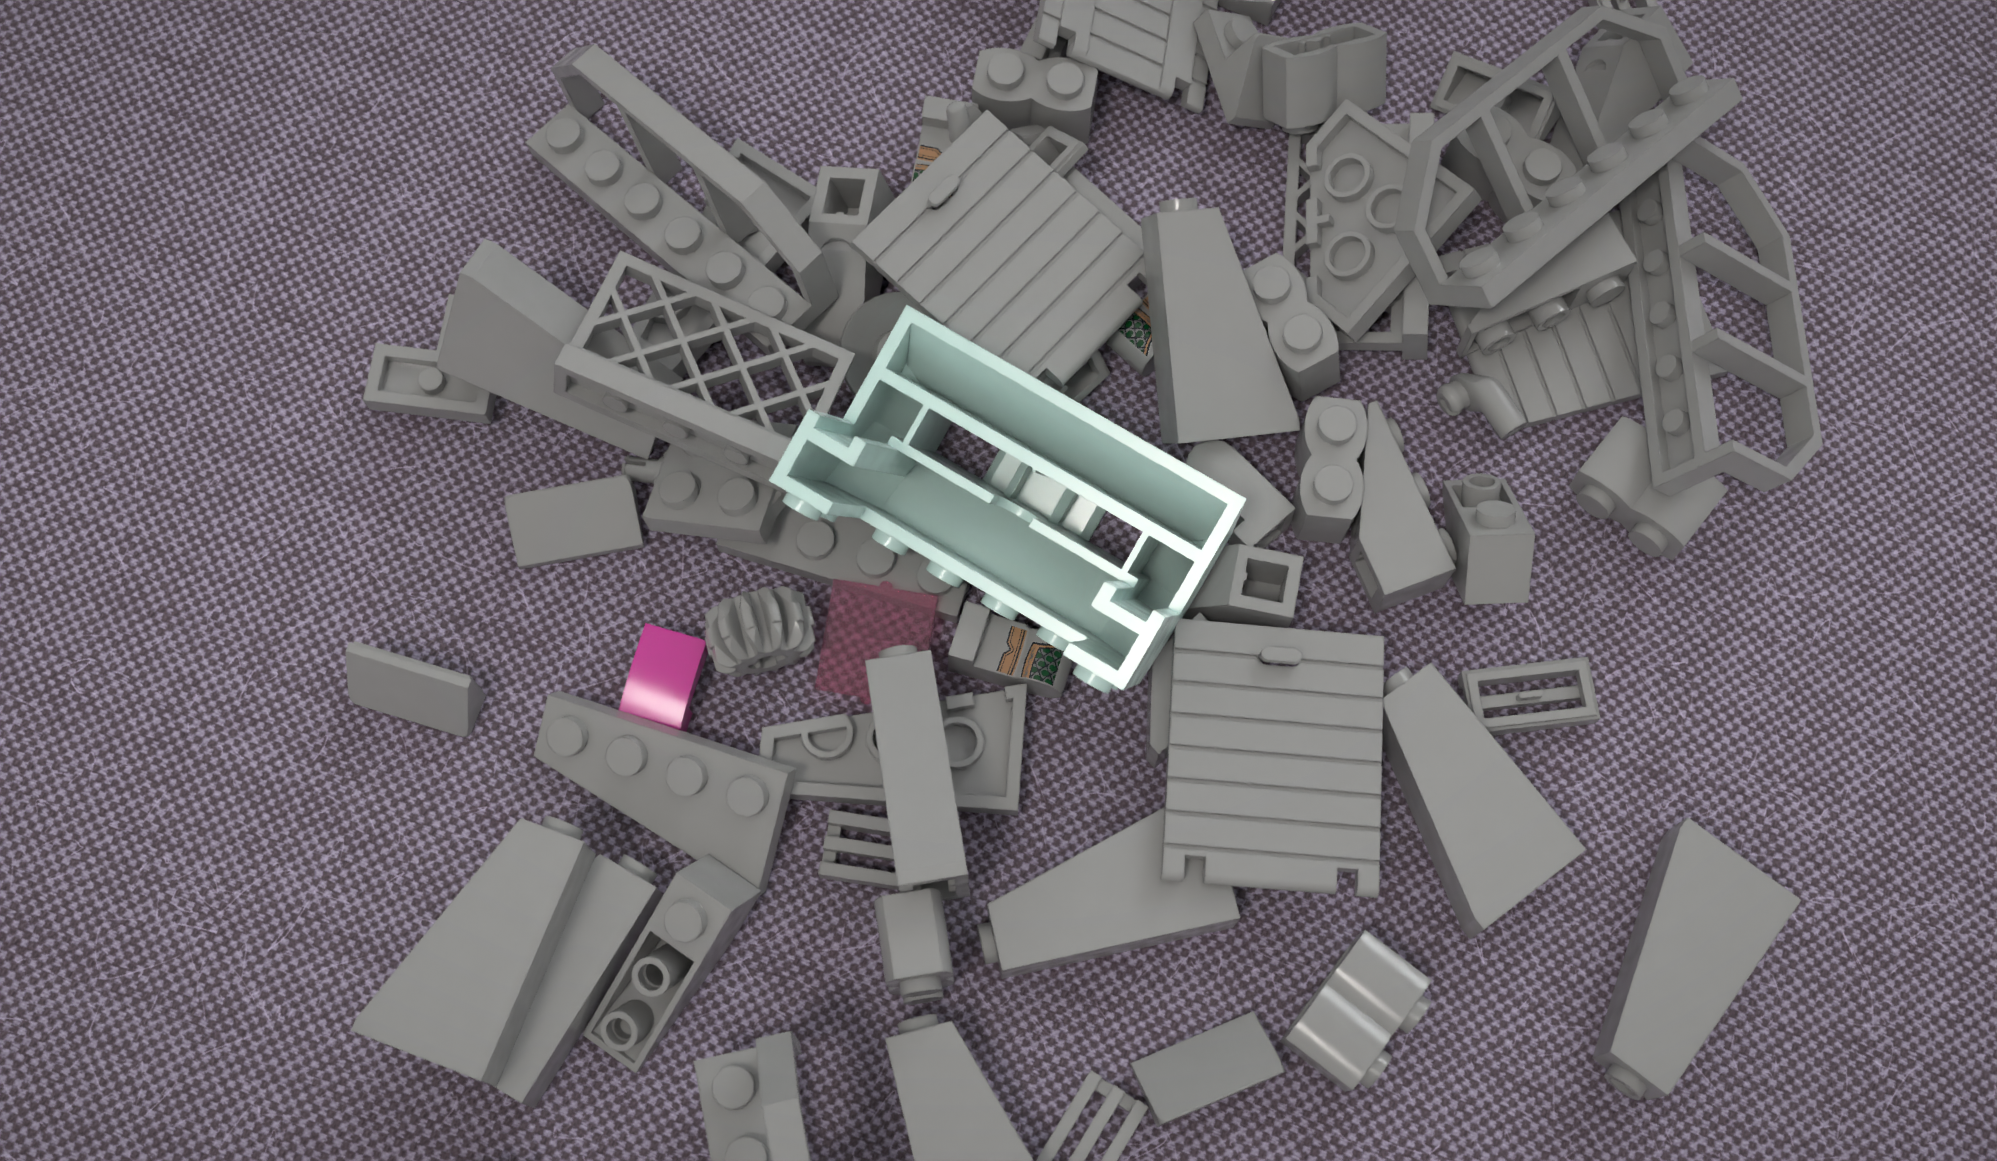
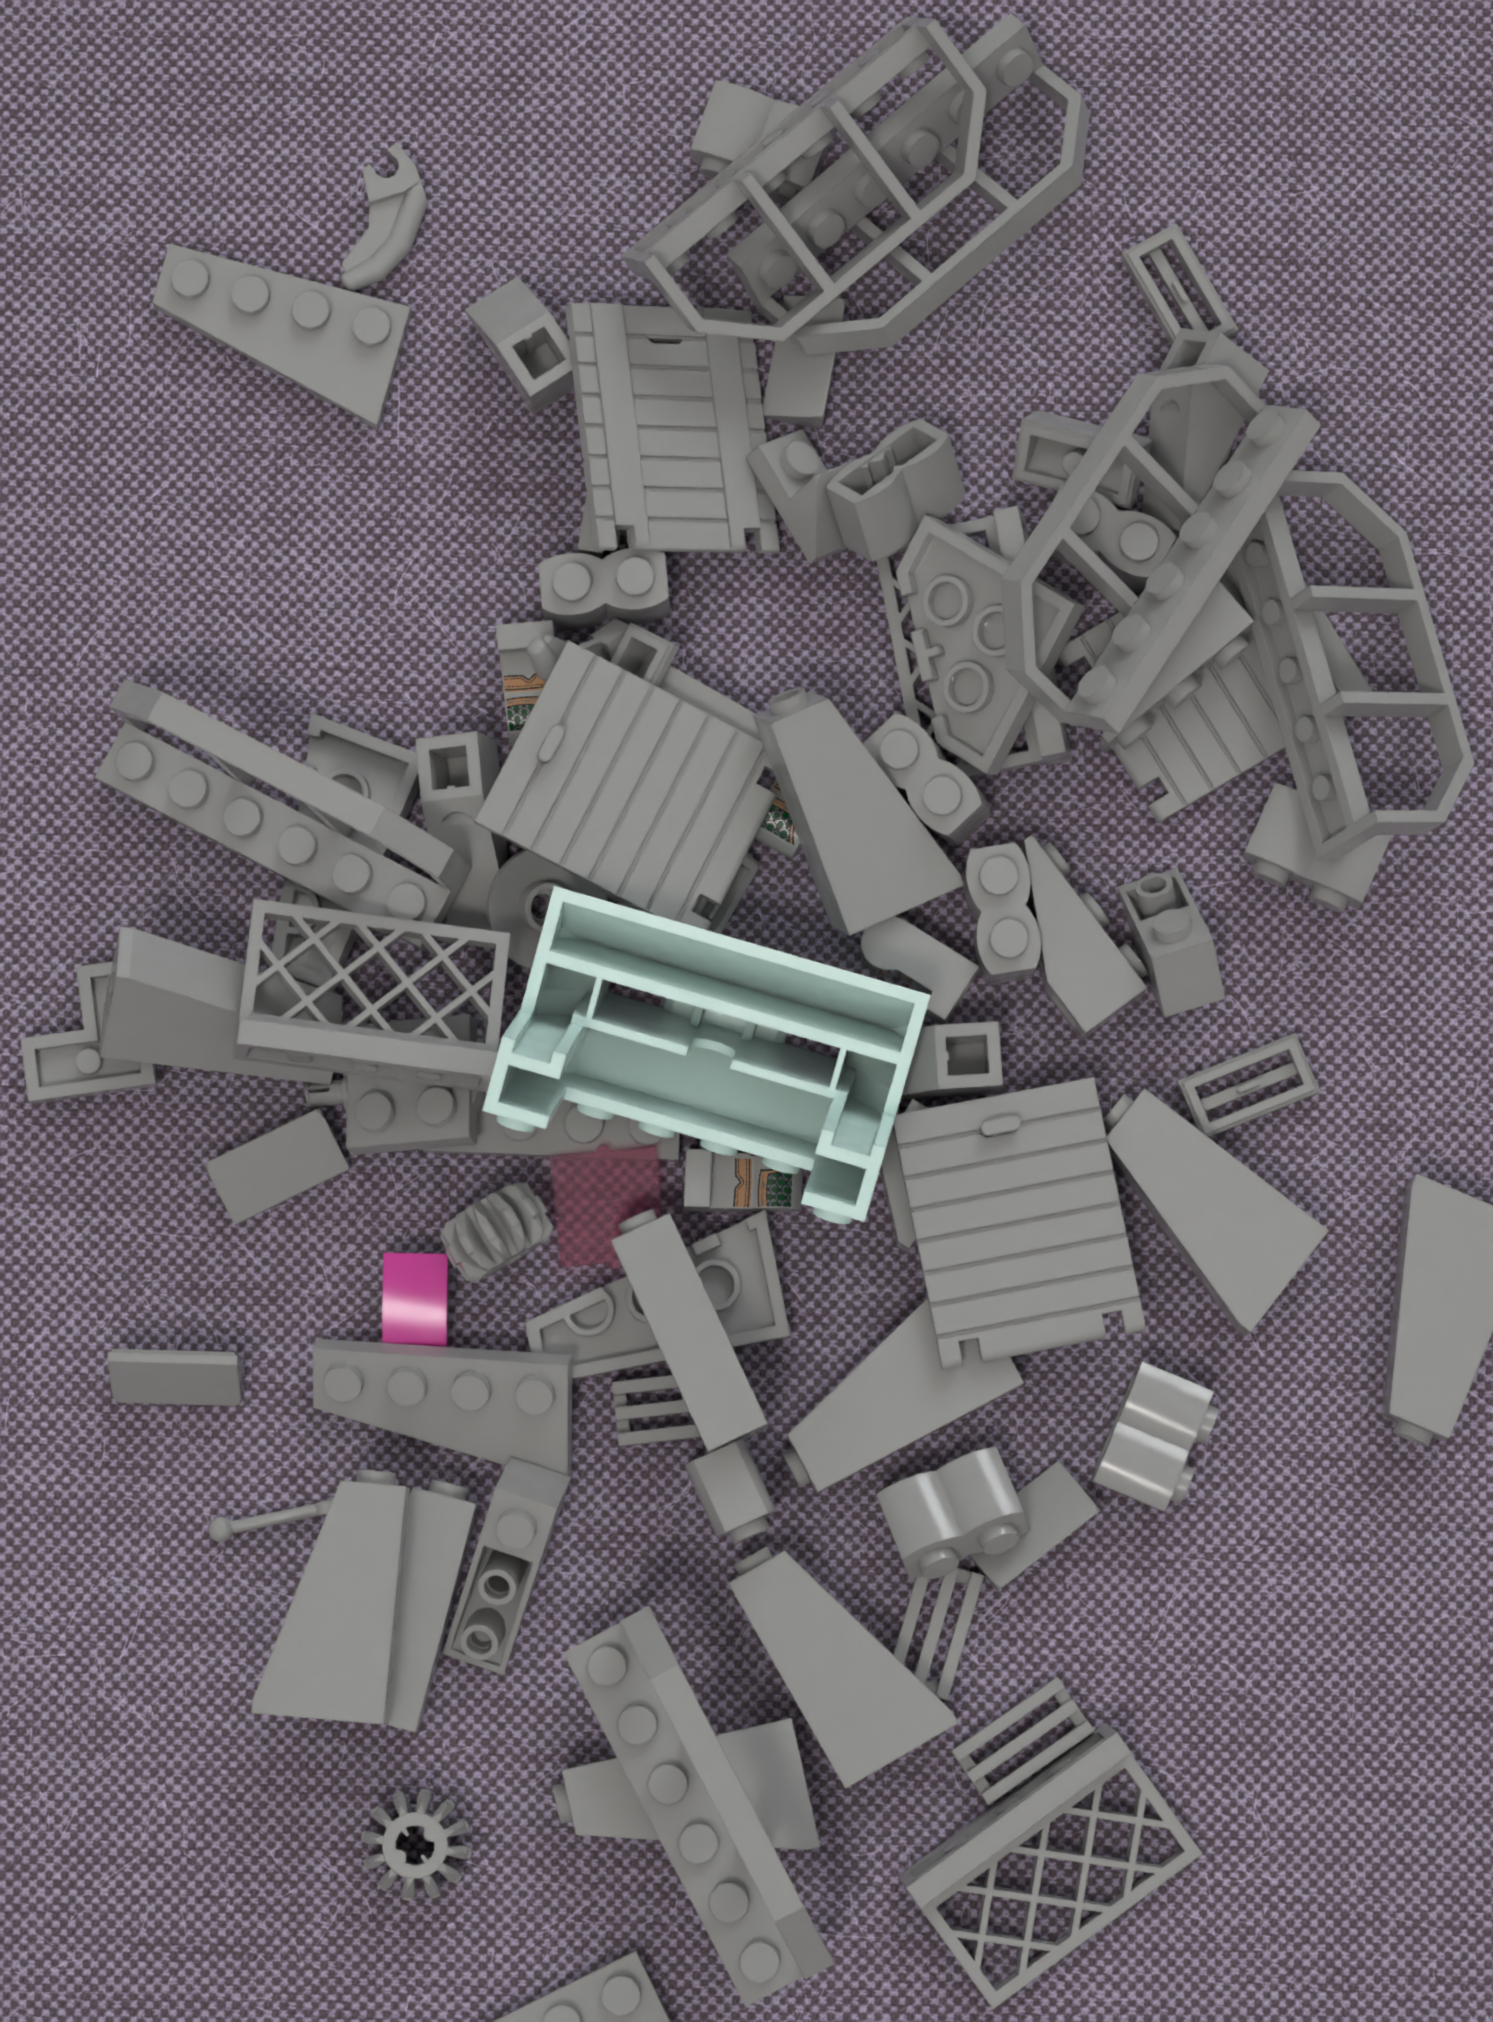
camera: 15 degrees left, 10 degrees up
(408, 850) = (222, 1528): none -> light grey hinge
(1134, 1032) = (953, 1514): none -> light grey brick
(1482, 395) = (1136, 791): light grey arm -> none

